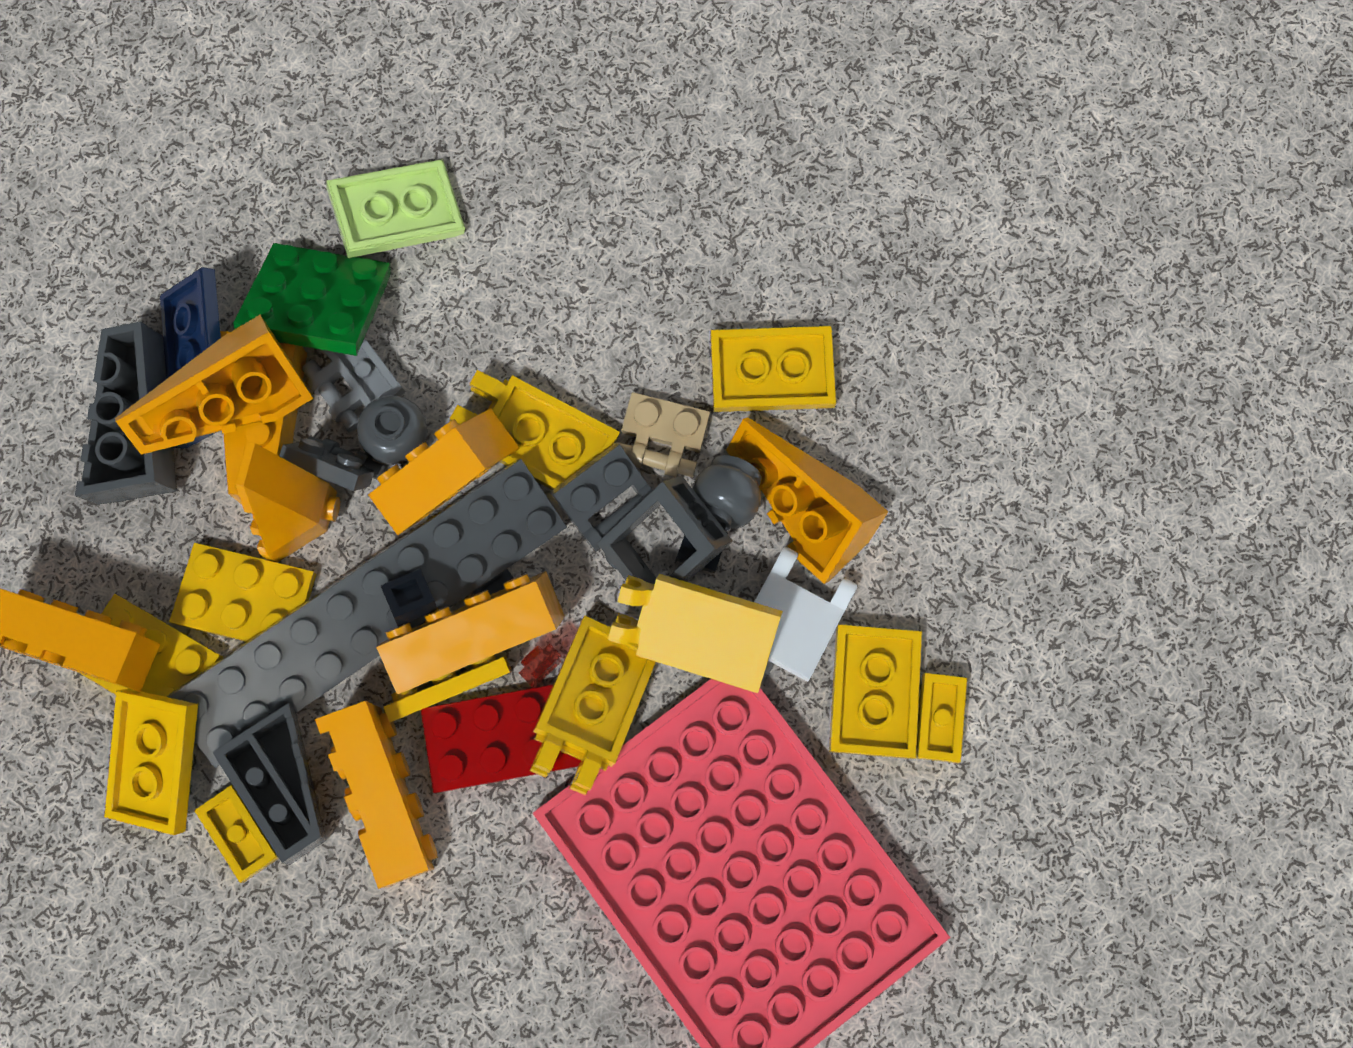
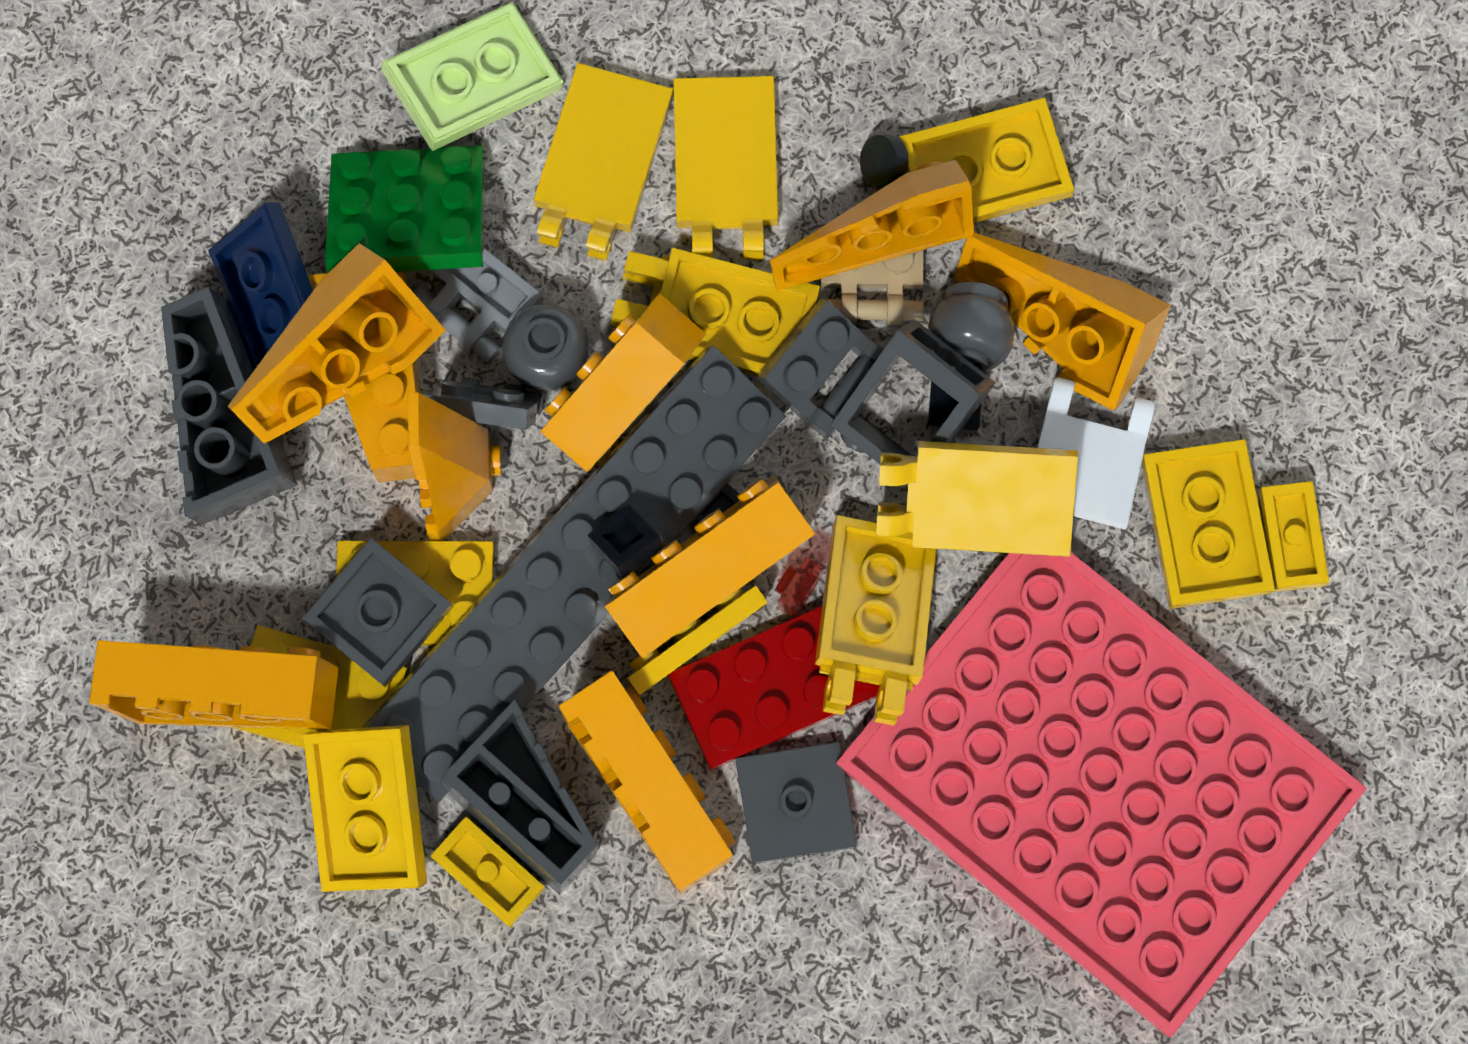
camera: 10 degrees left, 0 degrees up
(203, 607) = (378, 612): none -> dark grey plate
(478, 293) = (600, 156): none -> yellow tile
(493, 836) = (795, 803): none -> dark grey plate
(573, 318) = (726, 159): none -> yellow tile
(691, 394) = (900, 219): none -> light orange wedge
(694, 346) = (883, 159): none -> black tile

